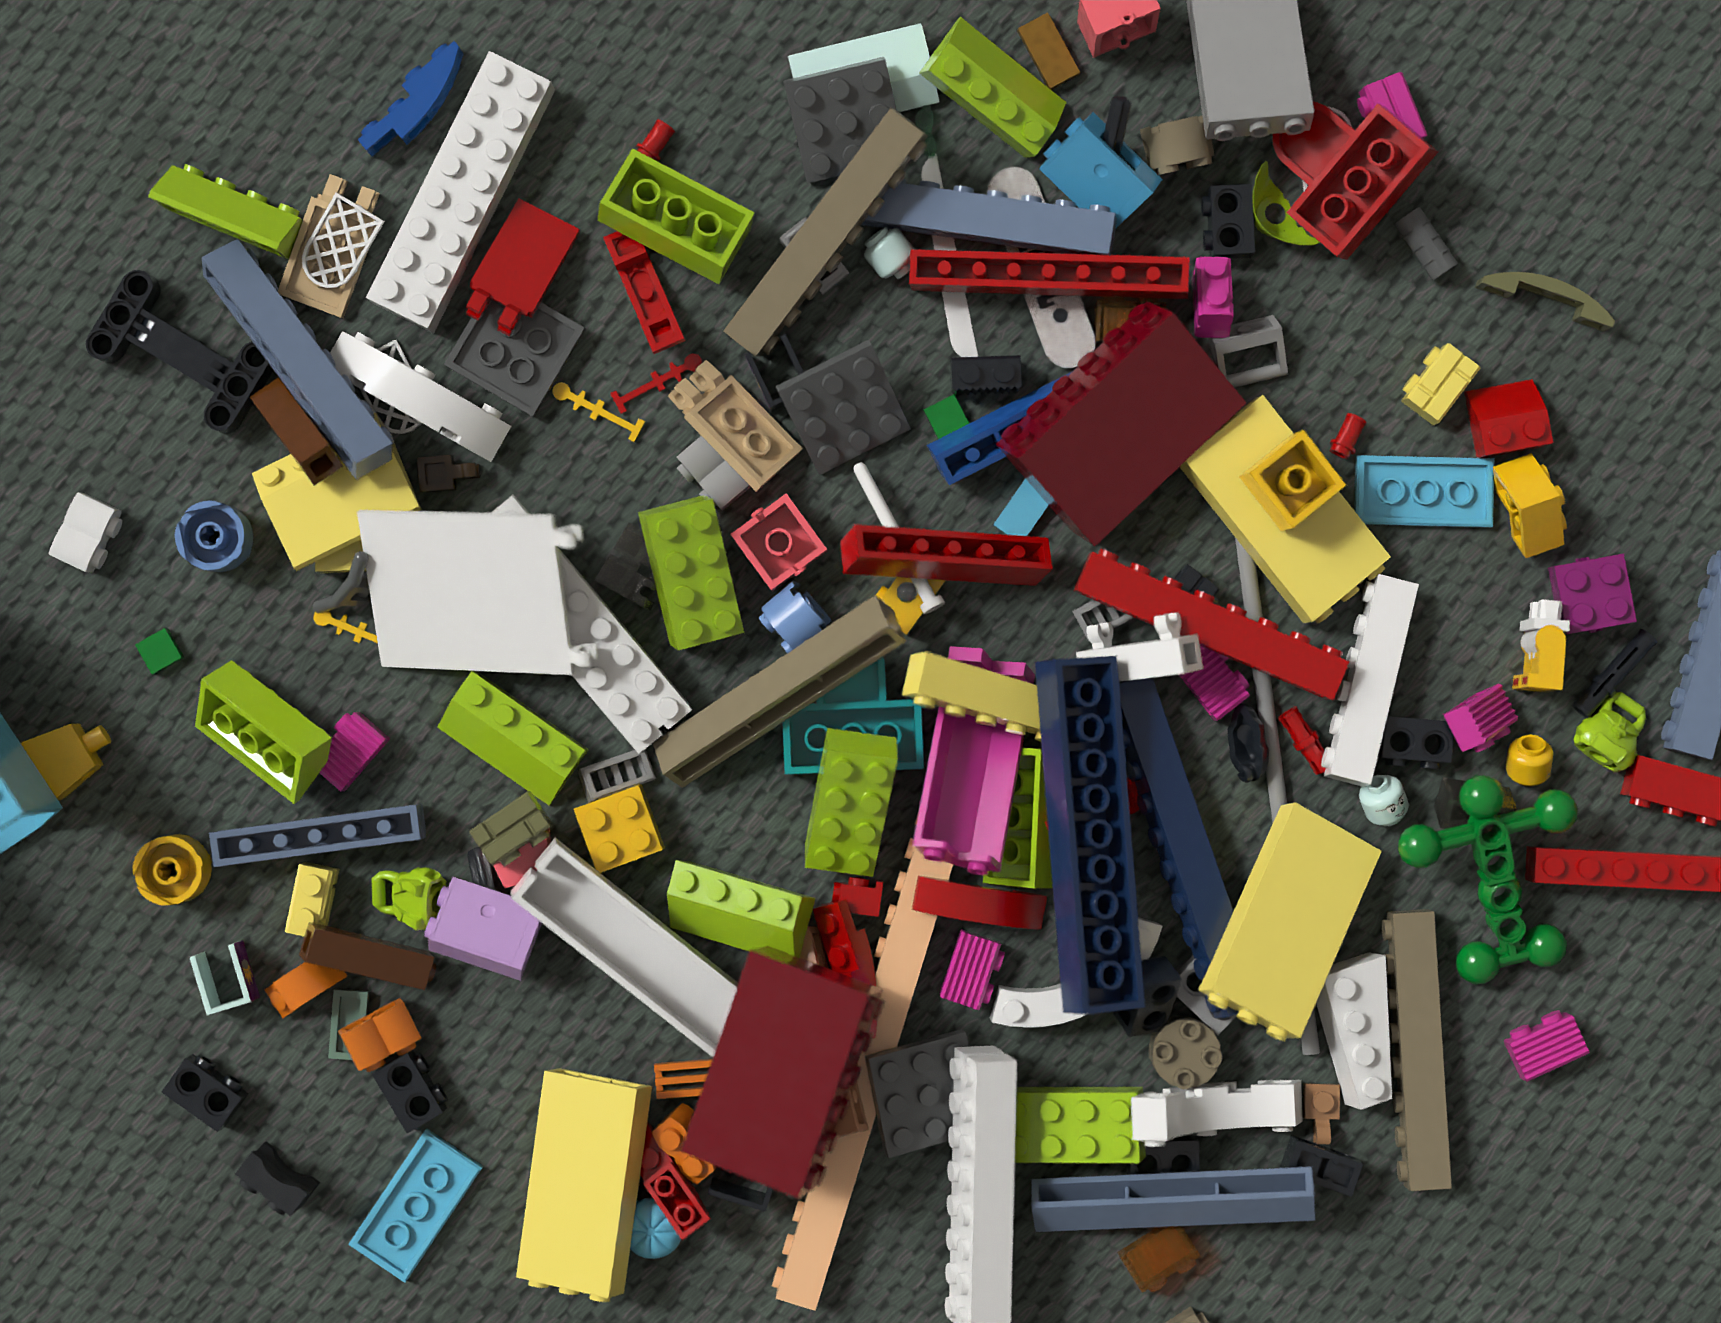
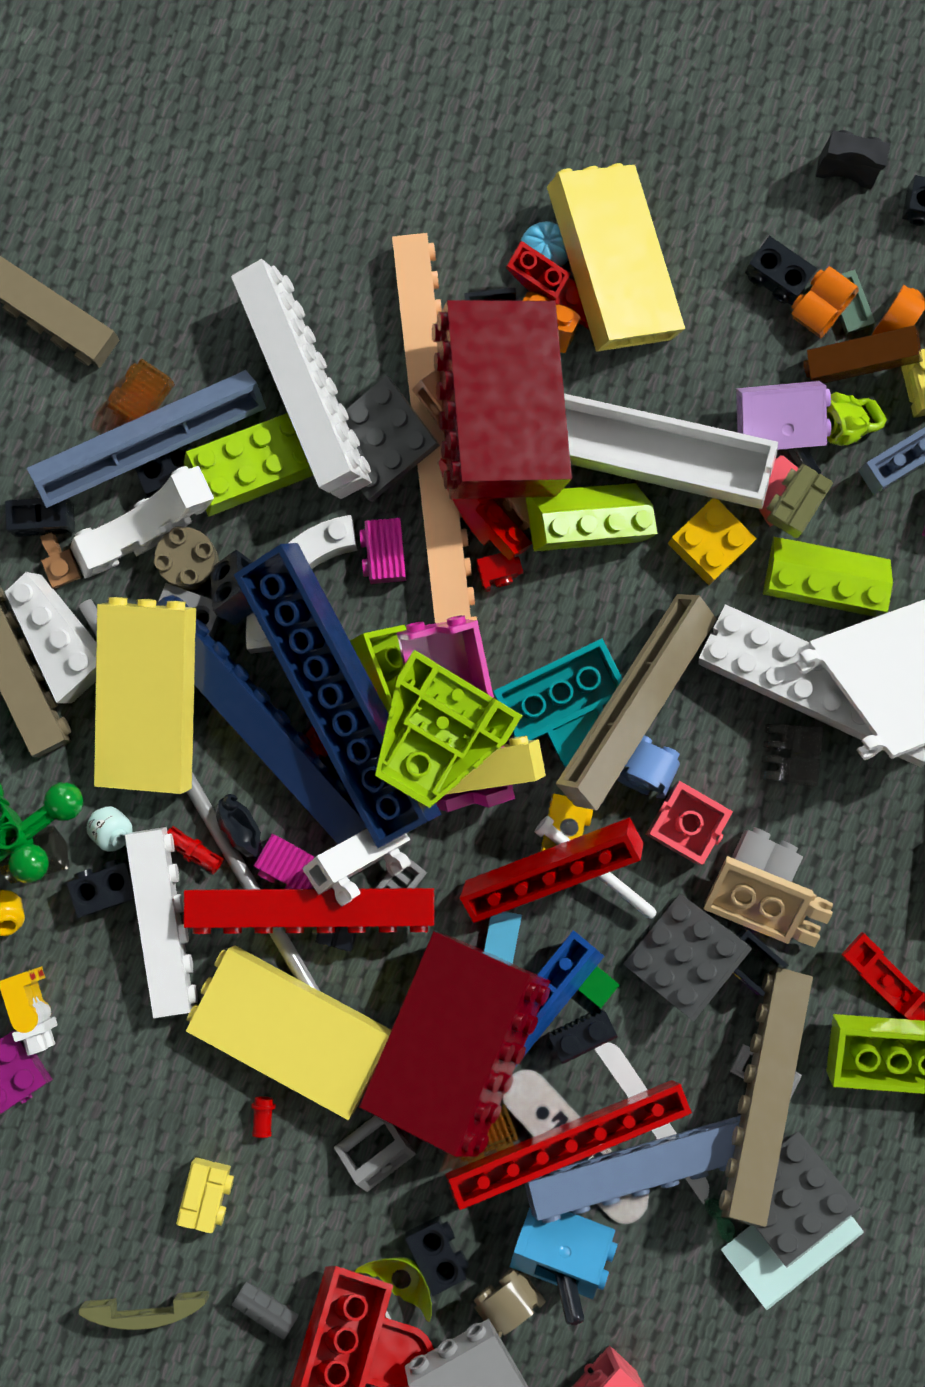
camera: 155 degrees right, 5 degrees down
(415, 1205) = (734, 189): medium azure tile -> none
(562, 392) = (915, 870): yellow piece -> none
(588, 784) = (748, 583): light grey slope -> none
(680, 1065) = (589, 362): orange tile -> none
(691, 363) = (824, 941): red piece -> none
(691, 572) = (749, 767): lime brick -> none
(850, 802) = (540, 638): lime brick -> none
(889, 253) = (706, 1102): light aqua head -> none
(979, 903) = (400, 603): red slope -> none
(994, 89) = (682, 1281): lime slope -> none
(1002, 747) = (438, 730): none -> lime wedge
(1048, 51) = (649, 1333): pearl gold tile -> none
(1212, 297) = (424, 1184): dark pink brick -> none
(1292, 480) = (293, 1058): yellow brick -> none
(1424, 491) = (180, 1099): medium azure tile -> none
(1481, 719) = (56, 929): dark pink brick -> none
(1508, 419) = (135, 1190): red slope -> none
(1532, 504) = (86, 1127): yellow brick -> none

